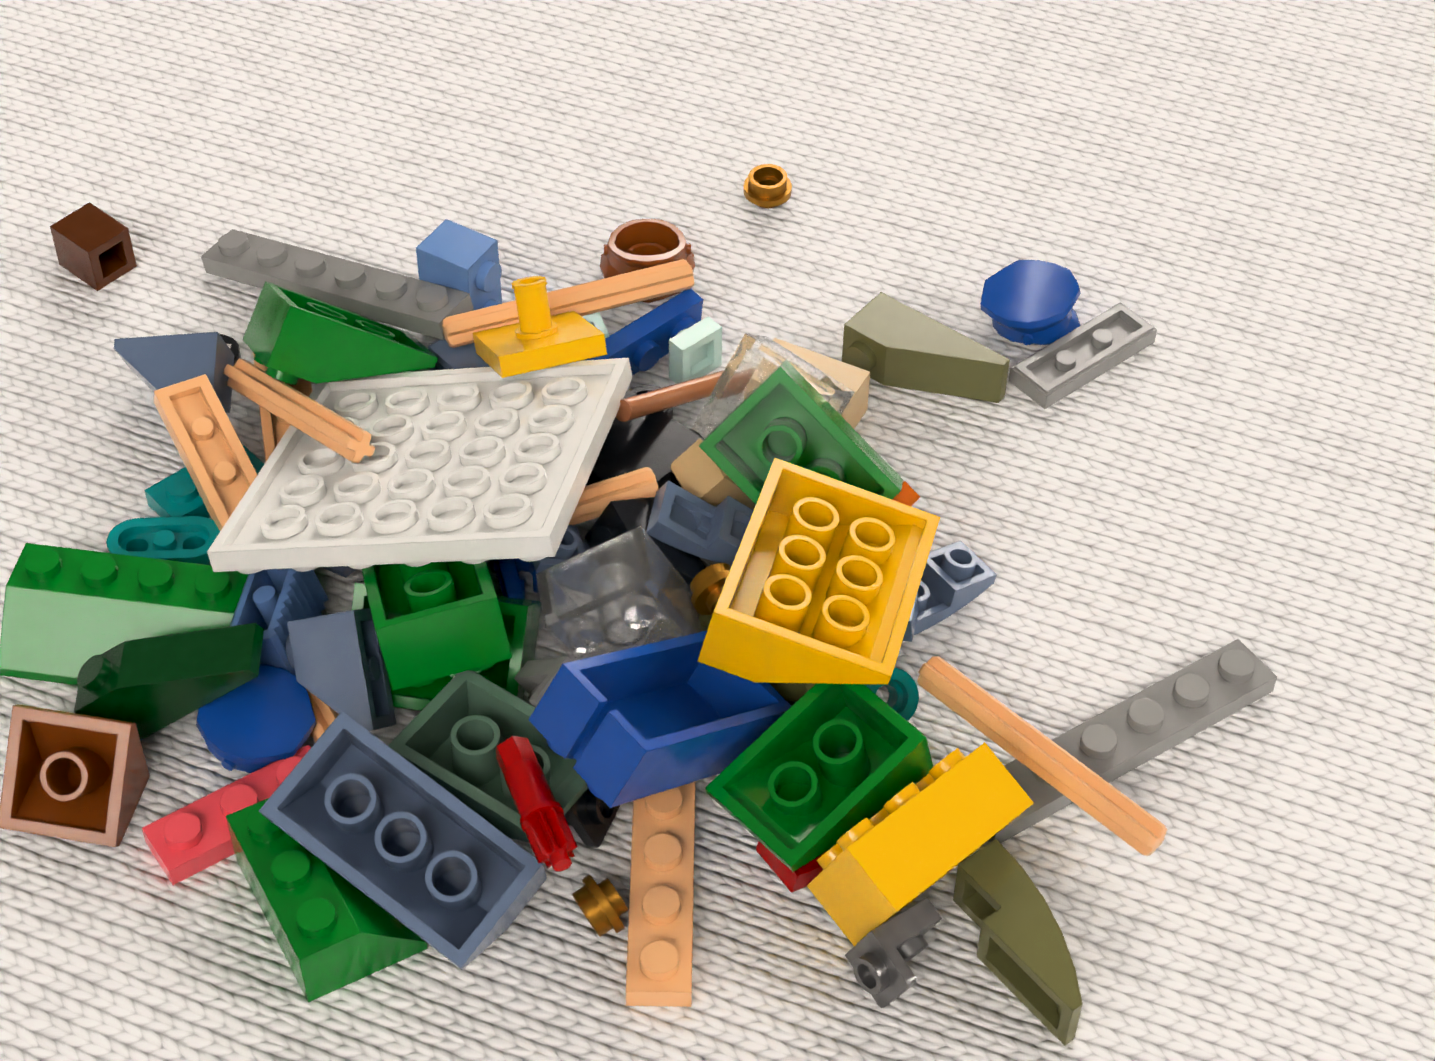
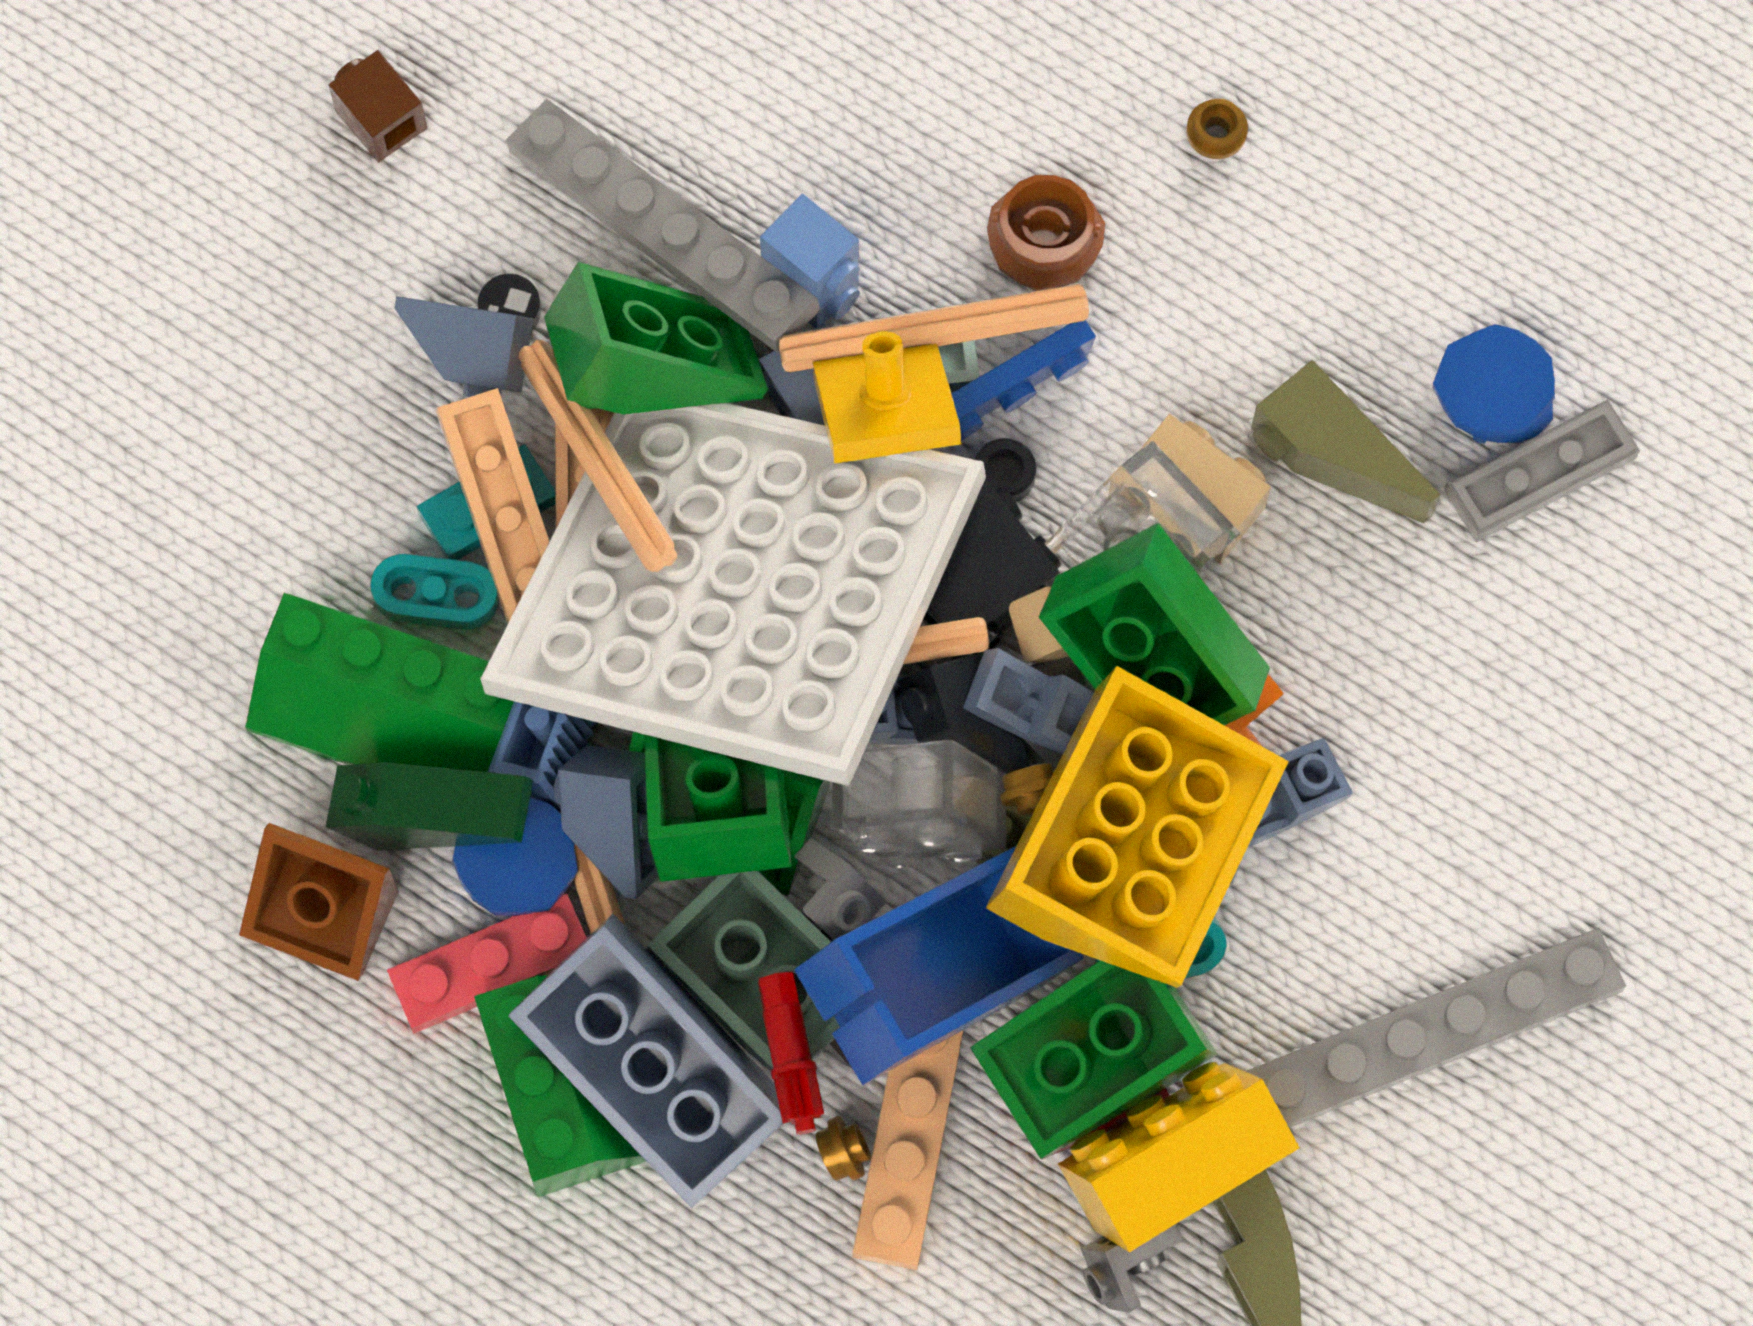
camera: 10 degrees right, 25 degrees up
(667, 397) = (1050, 484): nougat bar -> none
(695, 351) = (1074, 400): light aqua plate -> none
(1042, 756) = (1333, 1056): light nougat axle -> none

